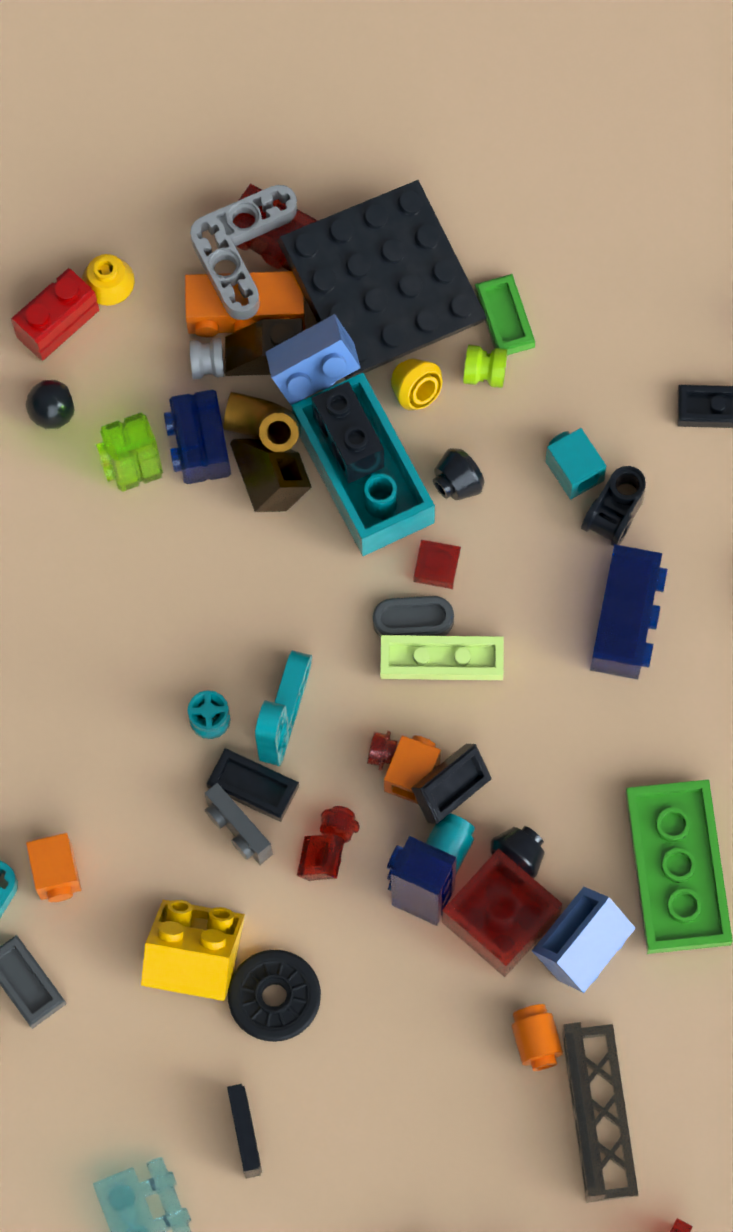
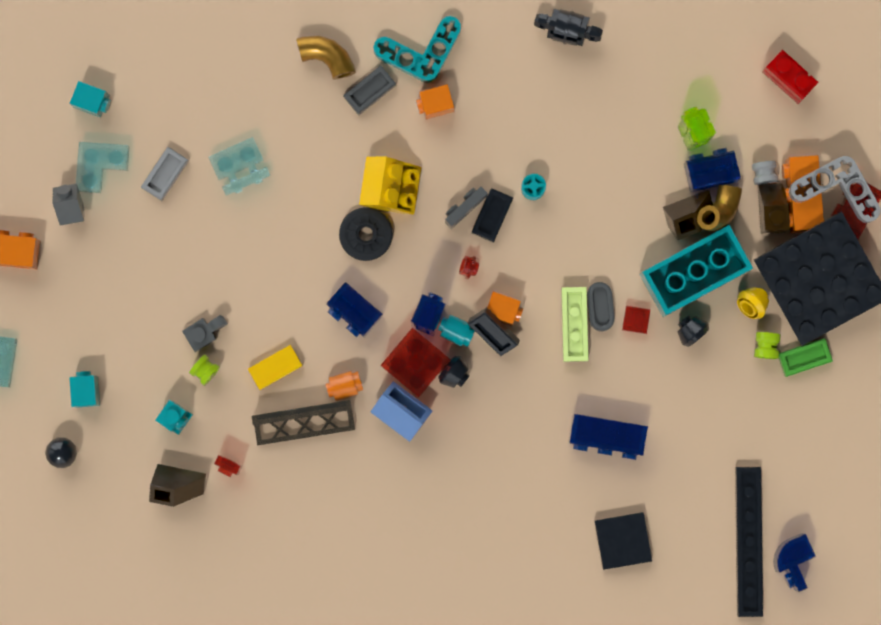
camera: 85 degrees right, 15 degrees up
(50, 404) = (729, 78): black piece -> none
(109, 279) = (811, 110): yellow cone -> none
(244, 1131) = (285, 220): black tile -> none
(278, 717) = (518, 224): teal beam -> none
(312, 360) = (758, 236): medium blue brick -> none
(320, 857) = (447, 256): clear red plate -> none
(348, 432) = (707, 259): black brick -> none
(381, 749) = (515, 290): clear red plate -> none
(407, 1017) = (353, 310): none -> clear blue brick
(501, 1159) = (275, 367): none -> yellow tile
(575, 462) = (704, 402): teal brick -> none
(612, 511) = (674, 427): black piece -> none
(678, 866) = (450, 467): bright green plate -> none

